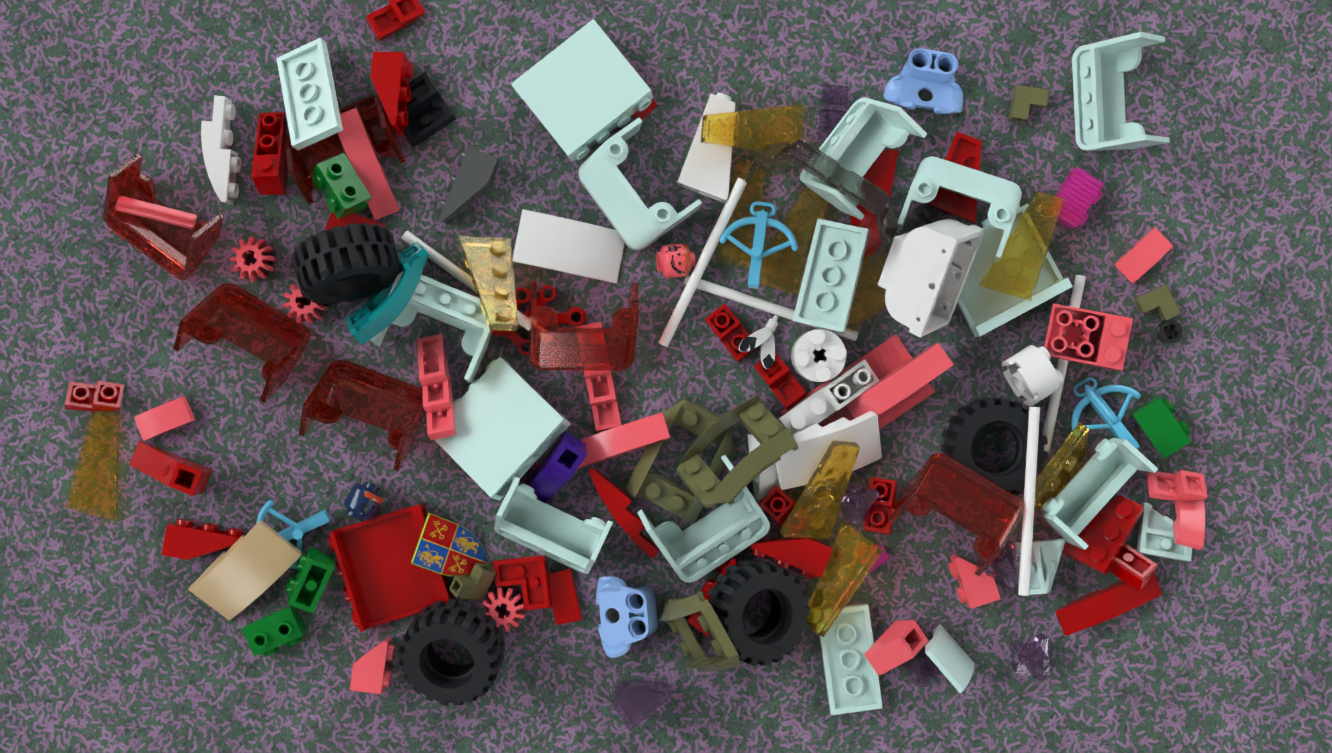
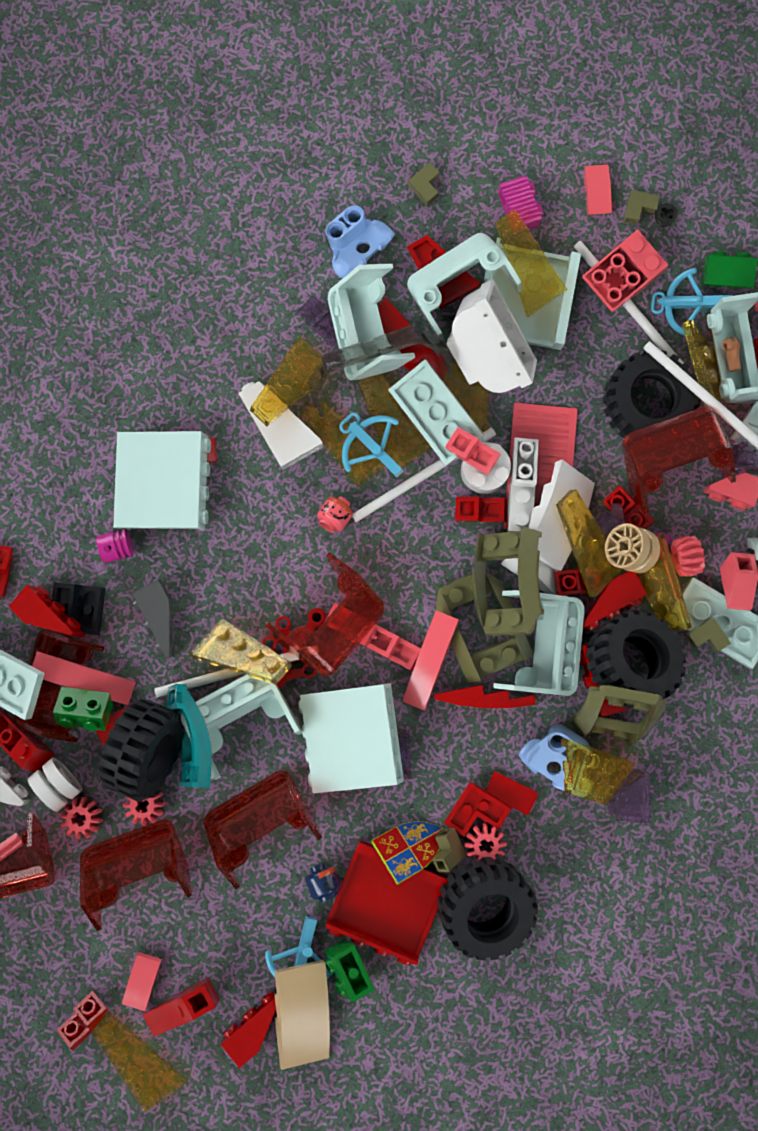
camera: 50 degrees left, 5 degrees down
(261, 214) = (54, 784): none -> white wheel
(274, 630) = (364, 1029): green brick -> none
(371, 670) = (450, 980): coral slope -> none
(436, 387) = (284, 759): coral slope -> none
(501, 101) = (120, 544): none -> dark pink piece
(549, 529) = (457, 761): light aqua windscreen -> none
(558, 466) = (414, 721): dark purple slope -> none
(568, 246) = (262, 581): white slope -> none
(618, 199) = (260, 517): light aqua windscreen -> none
(633, 650) = (593, 772): none -> clear yellow wing
(702, 262) = (352, 496): white piece -> none
(728, 330) = (418, 517): red slope -> none
(764, 338) = (441, 496): white piece -> none
(821, 334) = (472, 451): none -> coral slope
(830, 653) = (710, 632): none -> olive piece
(848, 534) = (632, 548): none -> tan wheel
(882, 586) = (687, 556): none -> coral gear
(901, 382) = (552, 423): coral slope -> none
(1032, 374) = (620, 330): white brick -> none
(1093, 481) = (732, 347): none -> nougat arm
(1101, 94) = (460, 129): light aqua windscreen -> none

